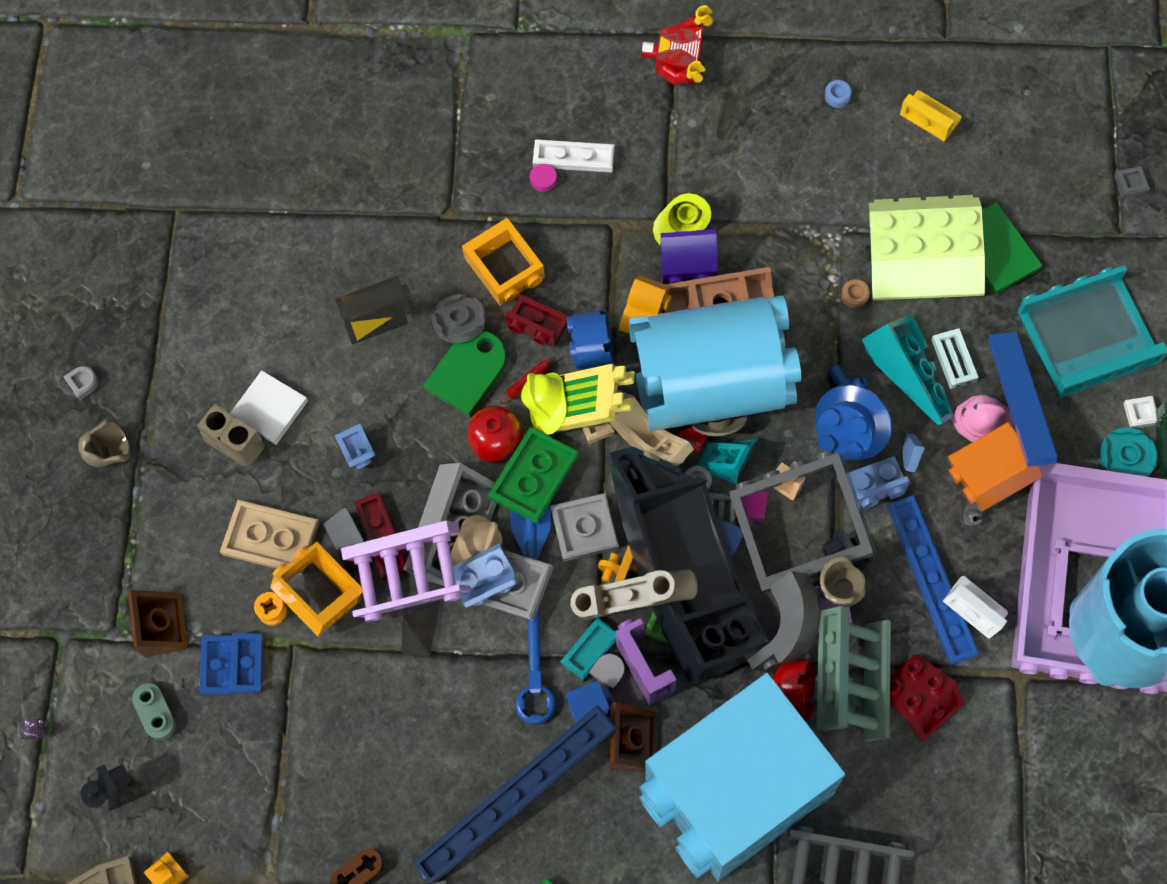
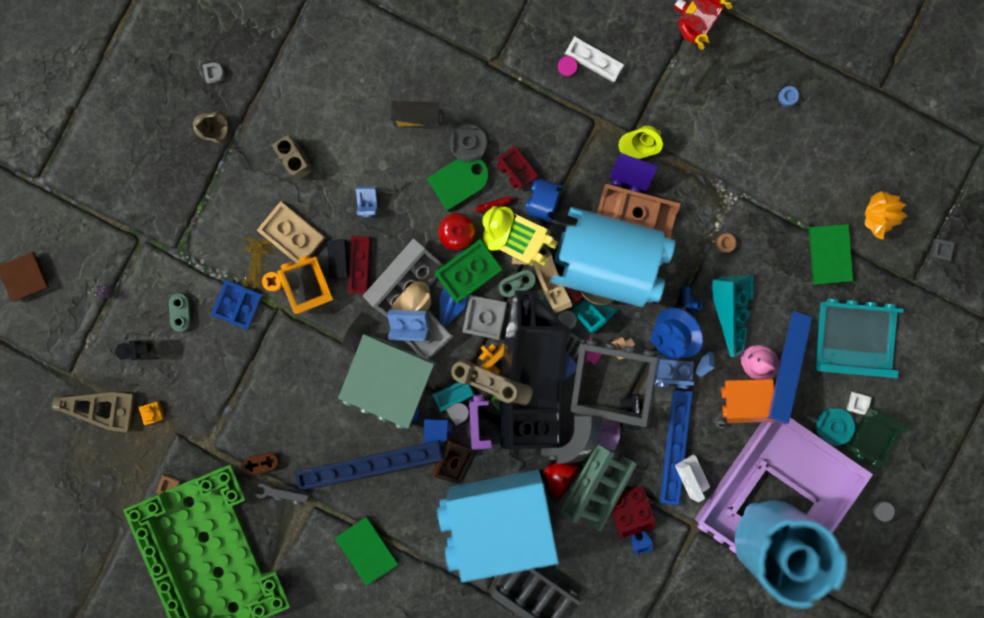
camera: 20 degrees right, 20 degrees up
(157, 622) = (201, 259): reddish brown slope -> none
(228, 576) = (256, 247): none -> clear yellow bar
(269, 407) = (324, 147): white tile -> none
(387, 549) = (373, 288): lavender fence -> none
(487, 666) = (386, 381): none -> sand green panel
(489, 242) = (508, 98): light orange window -> none
(600, 463) = (516, 283): none -> sand green plate
(645, 299) = (588, 193): light orange brick -> none
(842, 582) = (618, 436): dark tan hair -> none
(927, 248) = (788, 234): yellowish green slope -> none
(930, 115) = (840, 141): yellow panel -> none
(958, 733) = (642, 546): none -> blue tile
(961, 379) = (769, 332): light aqua tile -> none
(1032, 167) = (884, 213): none -> light orange hair

